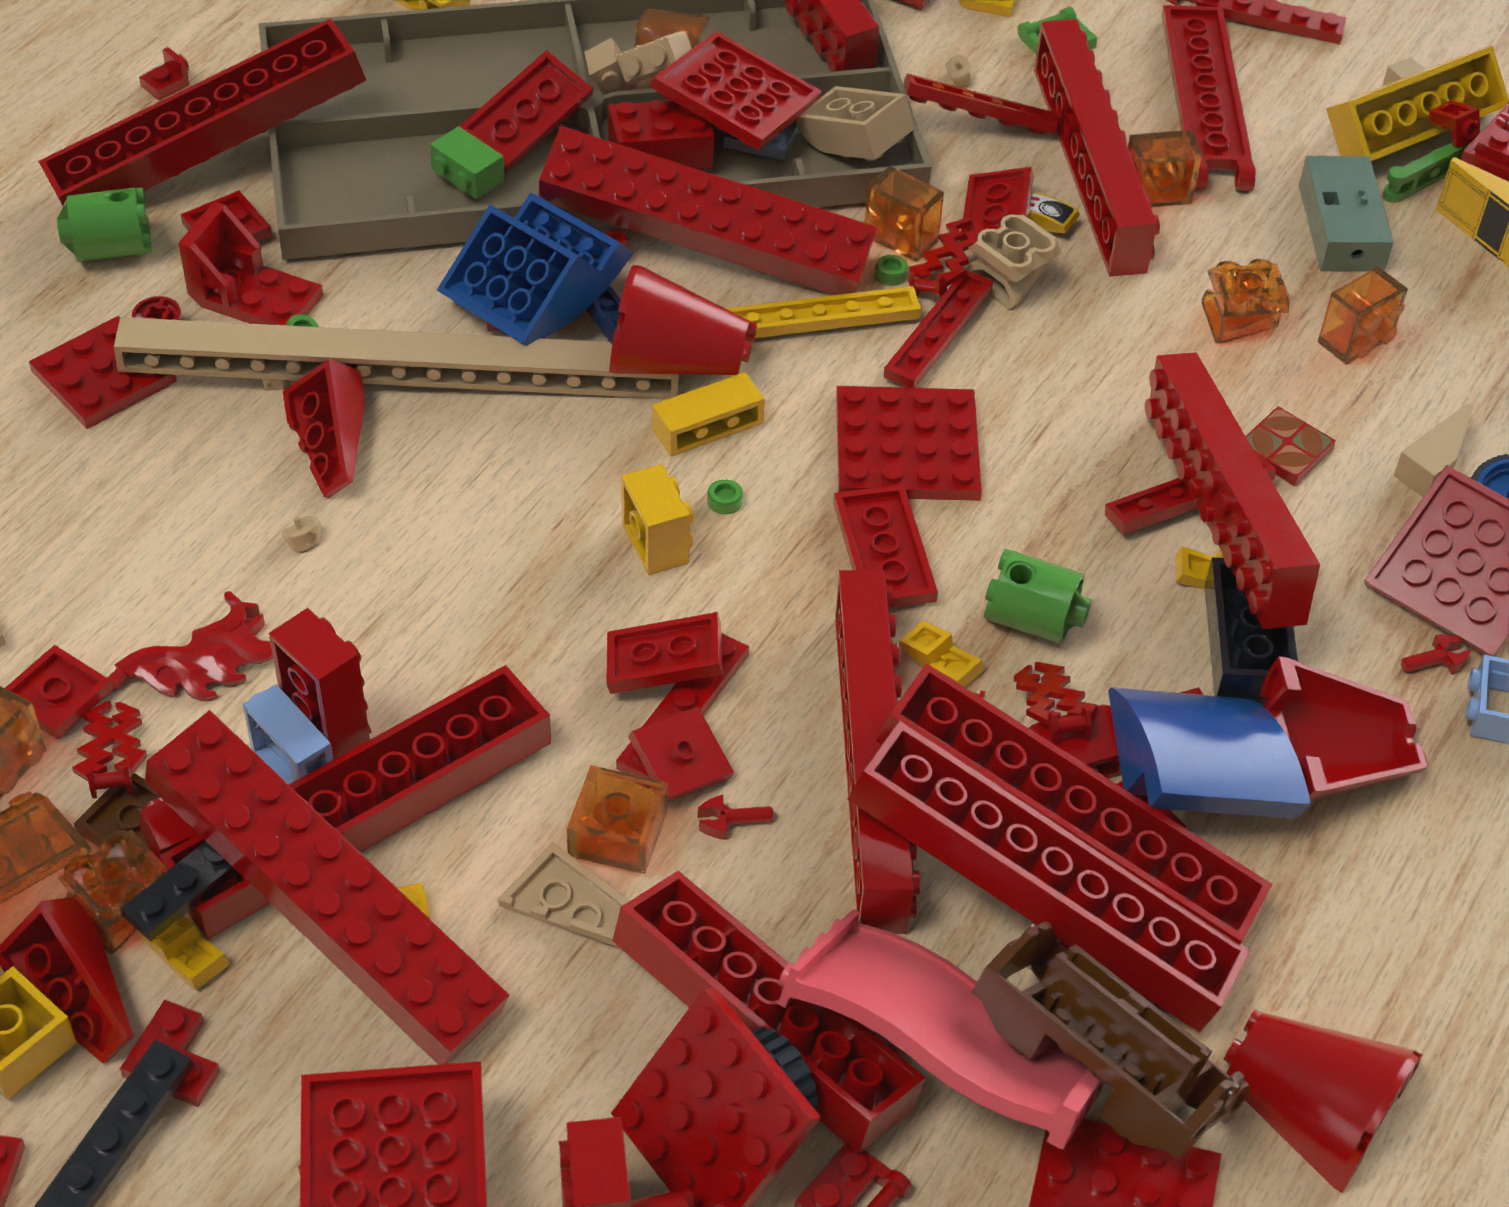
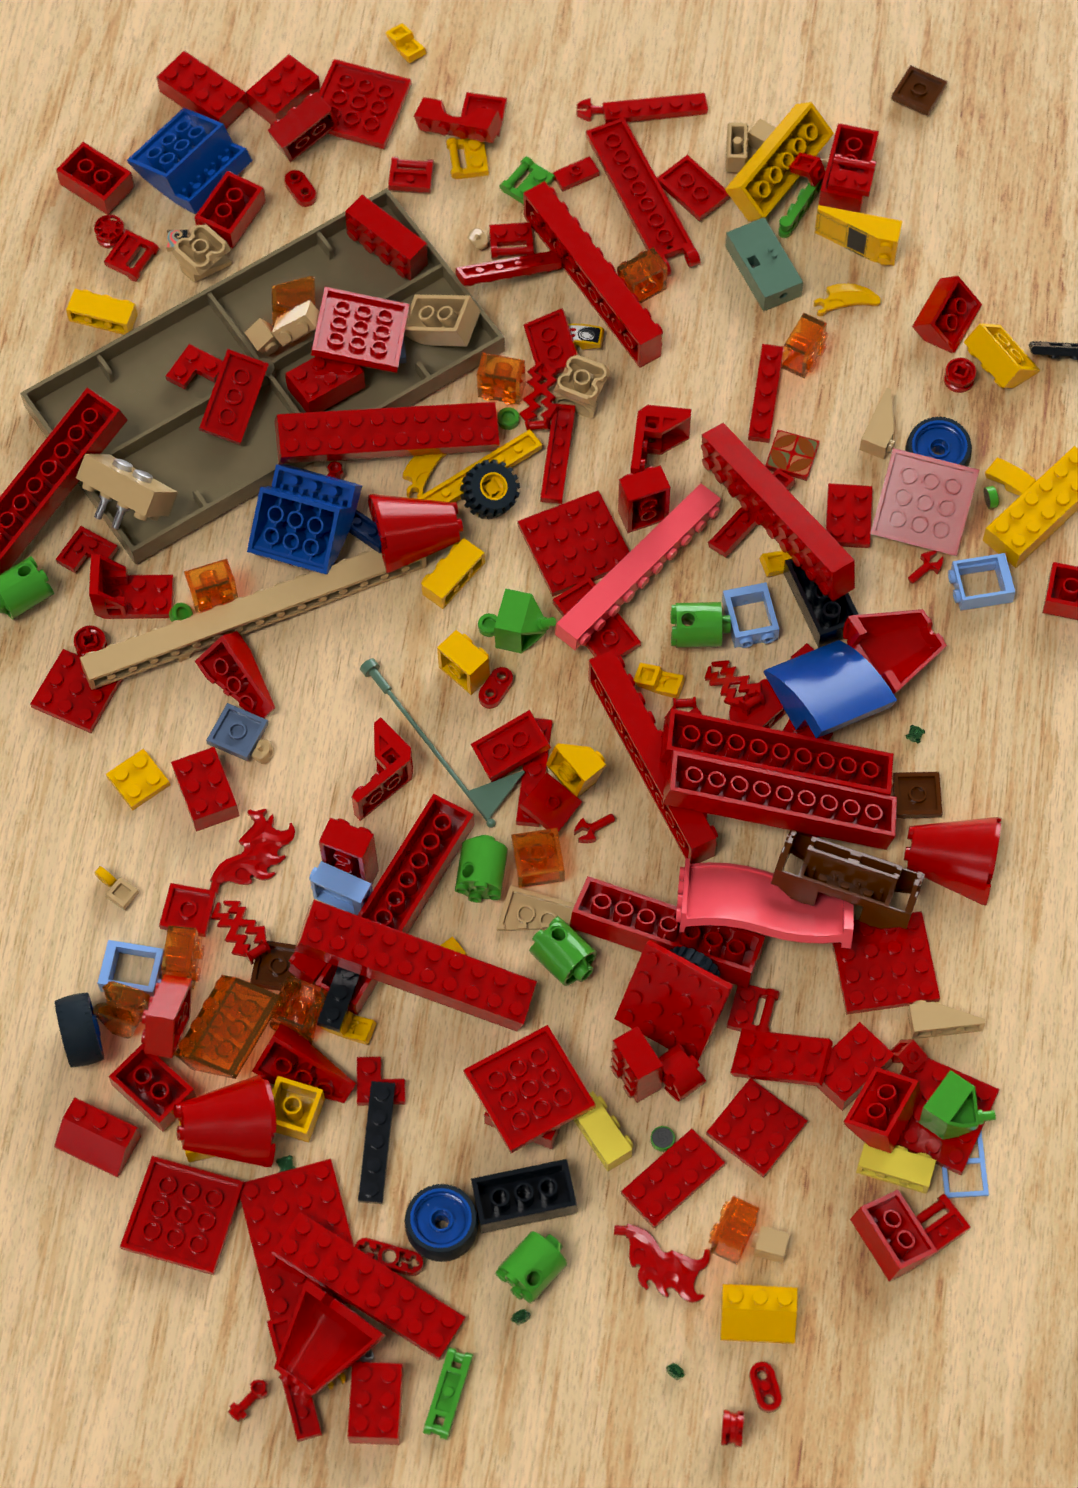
camera: 20 degrees left, 15 degrees up
(107, 504) = (138, 779): none -> yellow plate
(187, 545) = (205, 789): none -> red brick
(281, 494) = (237, 732): none -> sand blue plate
(314, 151) = (127, 485): none -> tan piece
(359, 299) = (211, 585): none -> clear orange brick
(453, 626) = (393, 770): none -> red bracket
(467, 162) = (216, 450): bright green brick -> none
(491, 71) = (193, 362): none -> red plate
(519, 799) = (481, 868): none -> bright green cylinder
(578, 970) = (563, 952): none -> bright green cylinder
(586, 712) = (486, 797): none -> sand green piece
(692, 574) = (497, 686): none -> red plate
(735, 283) = (419, 470): none -> yellow piece
(744, 708) = (576, 766): none -> yellow slope
(764, 497) = (519, 622): none -> bright green piece
(815, 328) = (490, 489): none -> black wheel
(978, 494) = (637, 567): none -> coral brick
(1004, 82) = (511, 235): none -> red plate
(1032, 408) = (643, 498): none -> red brick
(1091, 344) = (664, 424): none -> red bracket
(1128, 47) = (576, 173): none -> red plate
(1131, 592) = (749, 595): none -> light blue window
(1244, 299) = (730, 360): clear orange piece -> none
(1278, 363) = (765, 393): none -> red plate
(1283, 107) = (693, 188): none -> red plate
(1289, 969) = (917, 794): none -> reddish brown plate
(1323, 880) = (915, 734): none -> clear green piece
(1346, 546) = (849, 514): none -> red plate
(1365, 72) = (736, 146): none -> tan brick
(1451, 288) = (845, 296): none -> yellow piece

